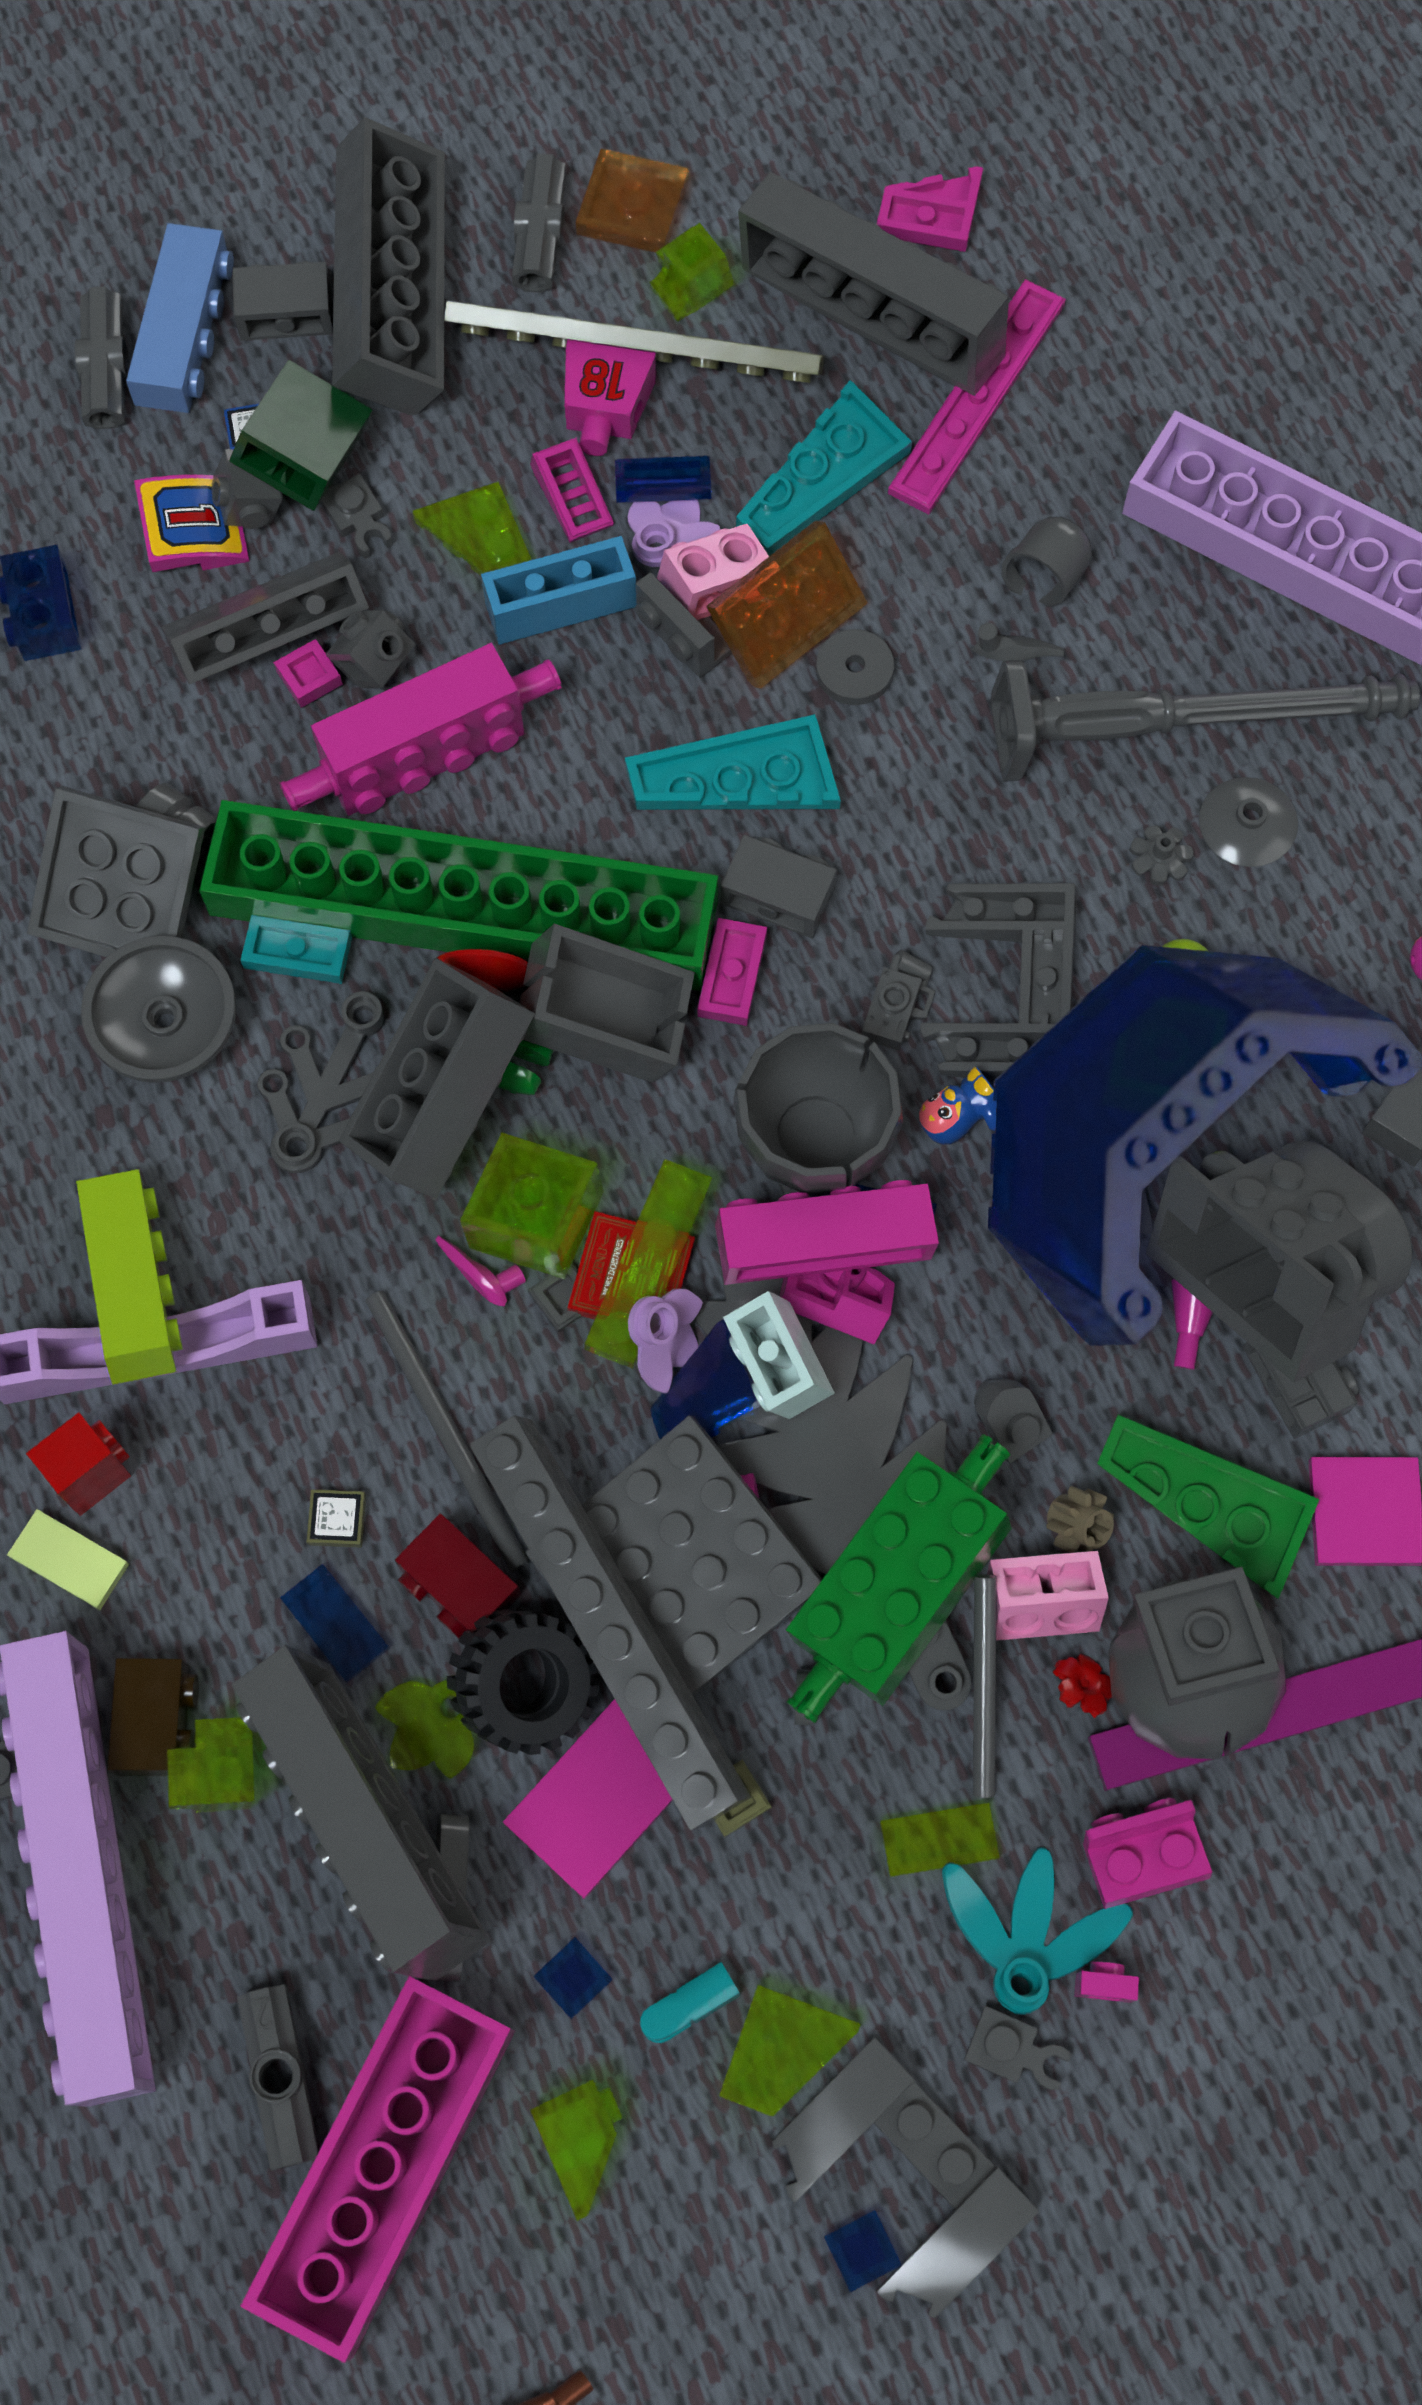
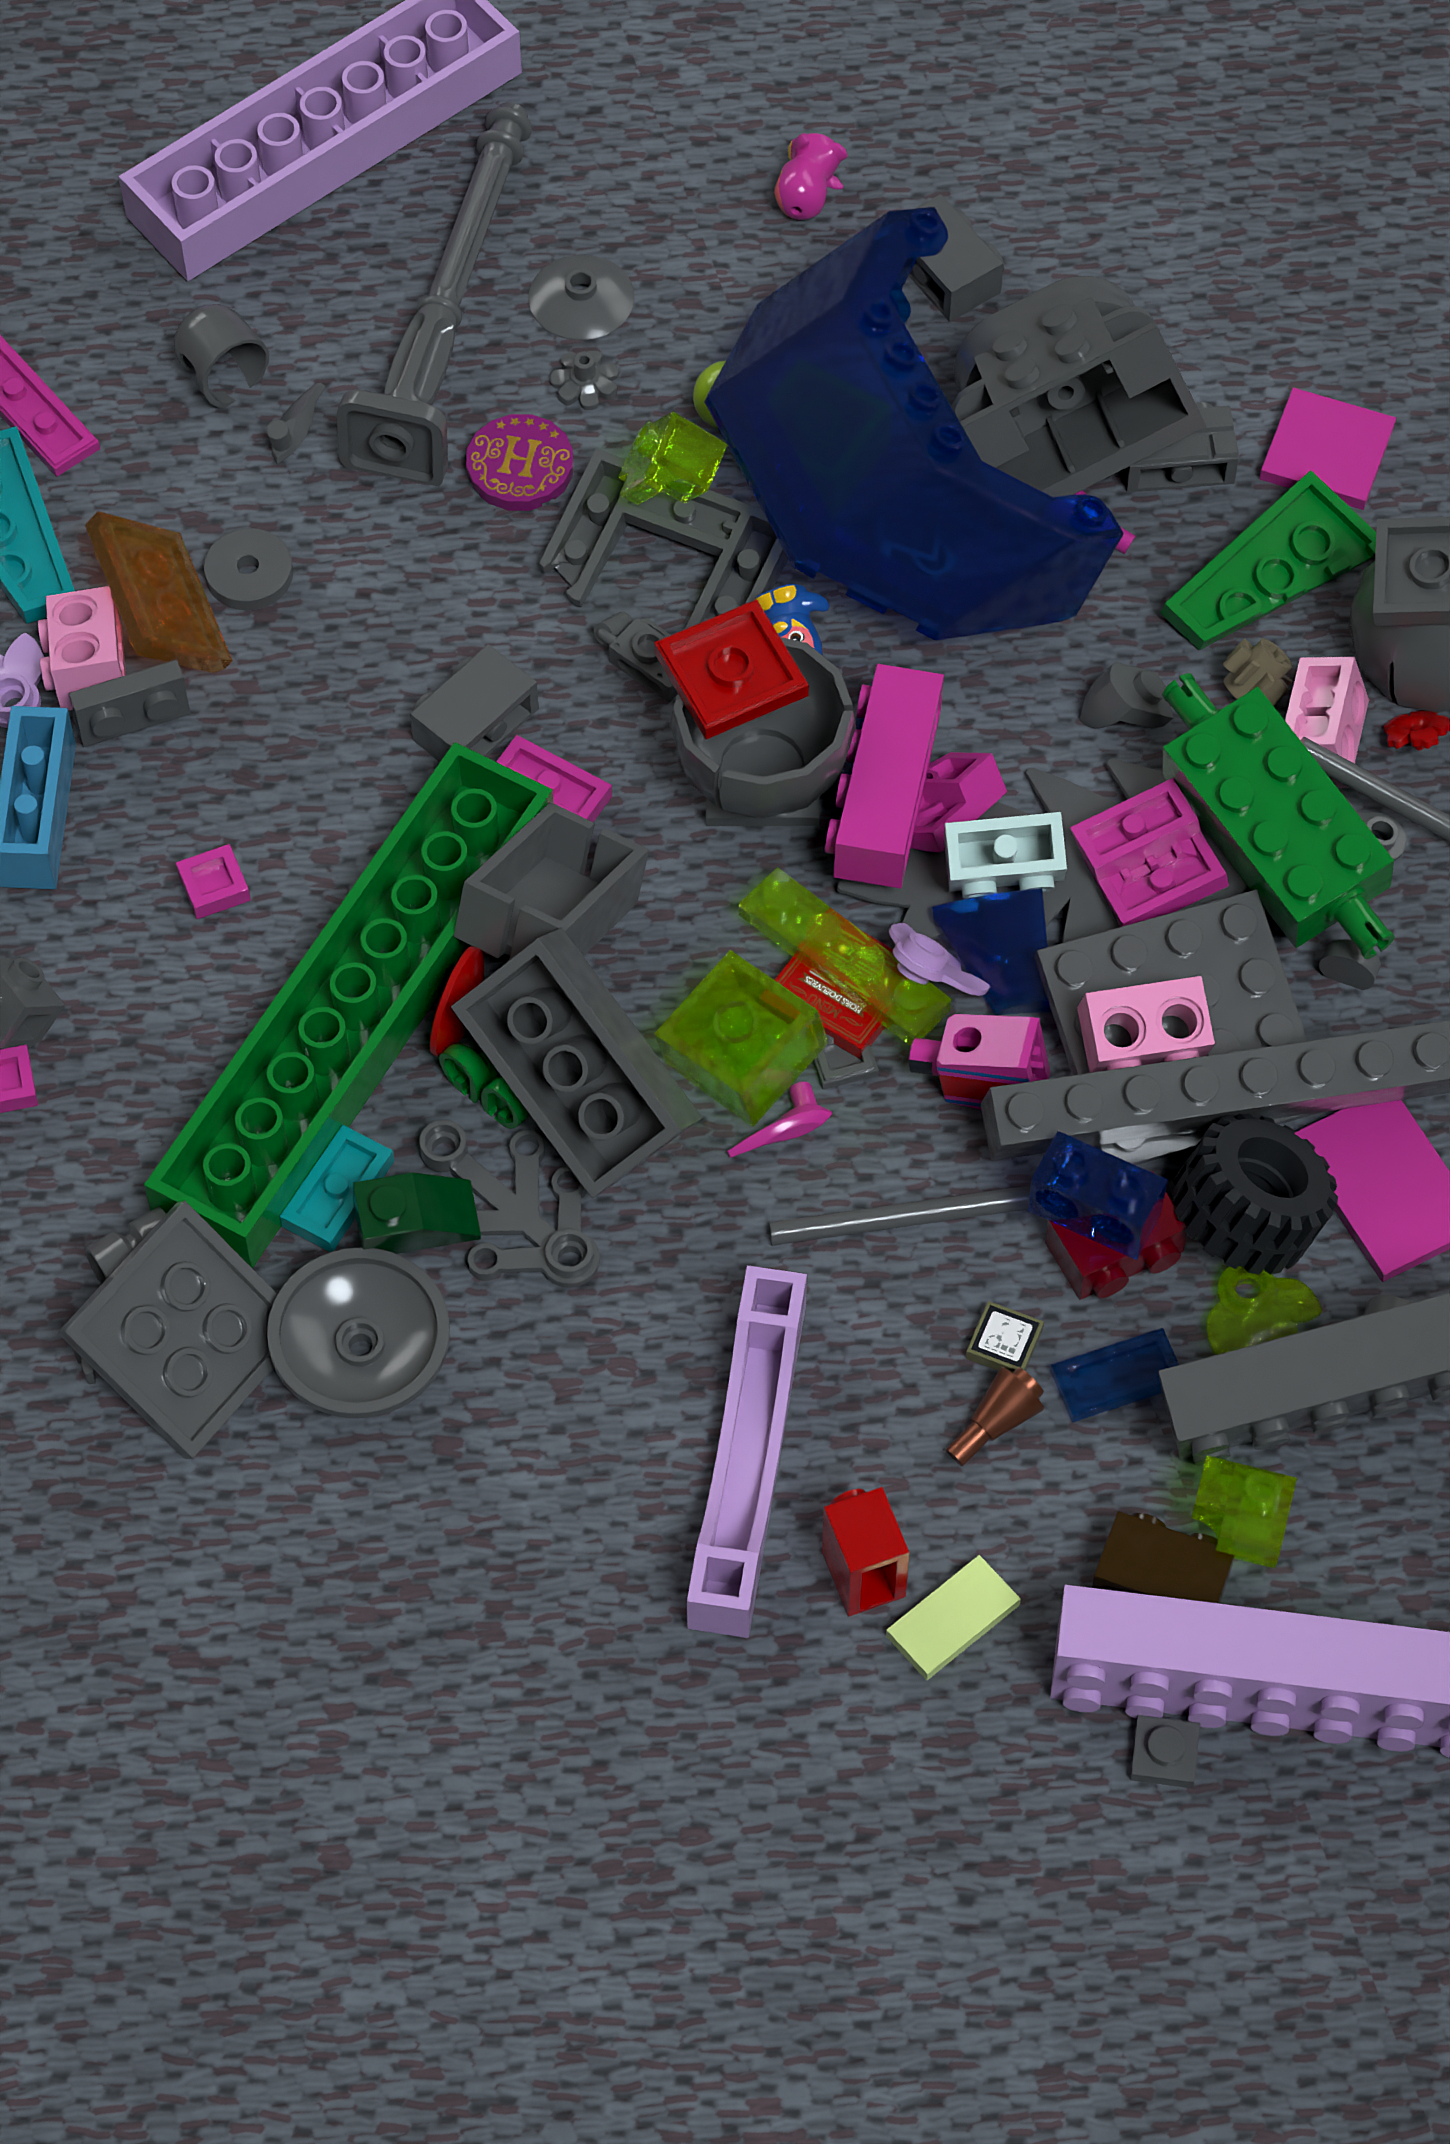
camera: 70 degrees left, 10 degrees down
(126, 1276) = (664, 1447): lime brick -> none
(272, 1539) = (1006, 1405): none -> copper cone
(275, 1010) = (414, 1212): none -> dark green slope
(419, 731) = (147, 977): dark pink brick -> none
(457, 1542) = (1097, 1195): none -> clear blue brick
(543, 752) = (213, 881): none -> dark pink plate
(579, 1413) = (982, 1054): none -> dark pink torso
(651, 1522) = (1141, 1014): none -> bright pink brick
(747, 769) = (322, 703): teal wing -> none
(830, 1481) = (1149, 855): none -> dark pink slope
(843, 1058) = (731, 669): none -> red tile
(1051, 833) = (519, 462): none -> magenta tile
(1067, 940) = (671, 459): none -> clear neon green brick

